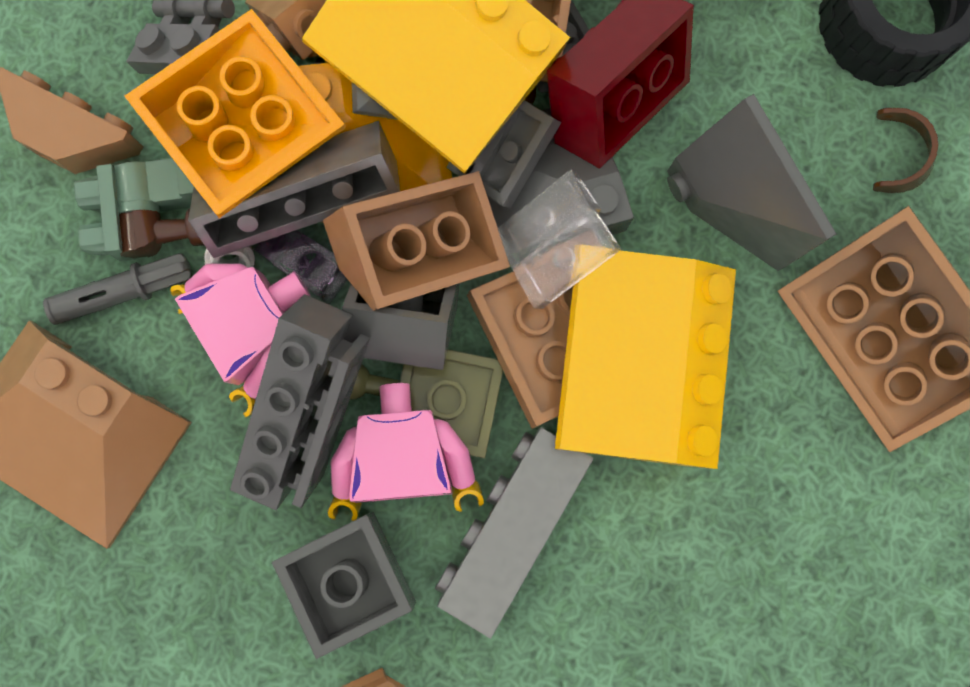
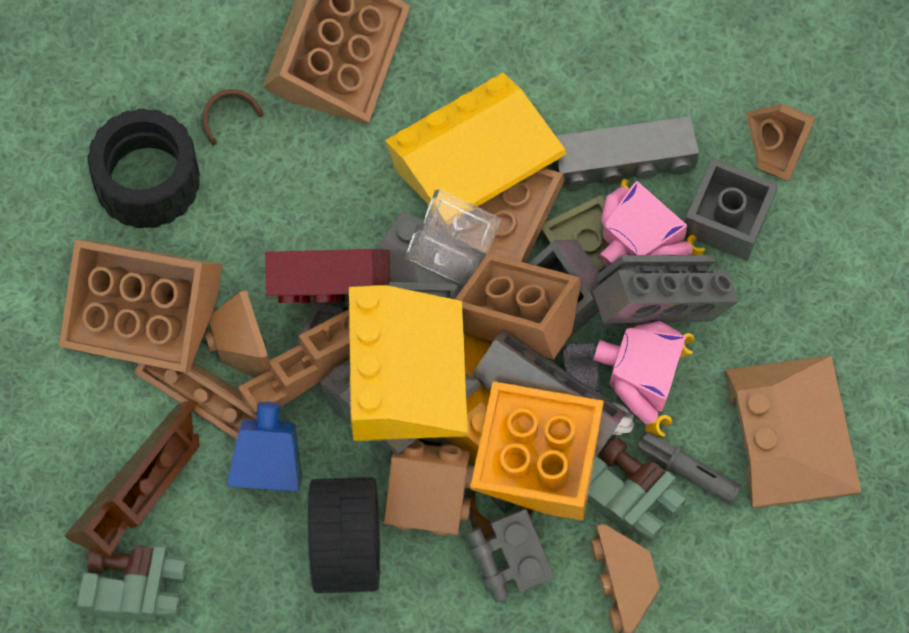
camera: 130 degrees left, 15 degrees down
(750, 188) = (333, 169): dark grey slope -> none

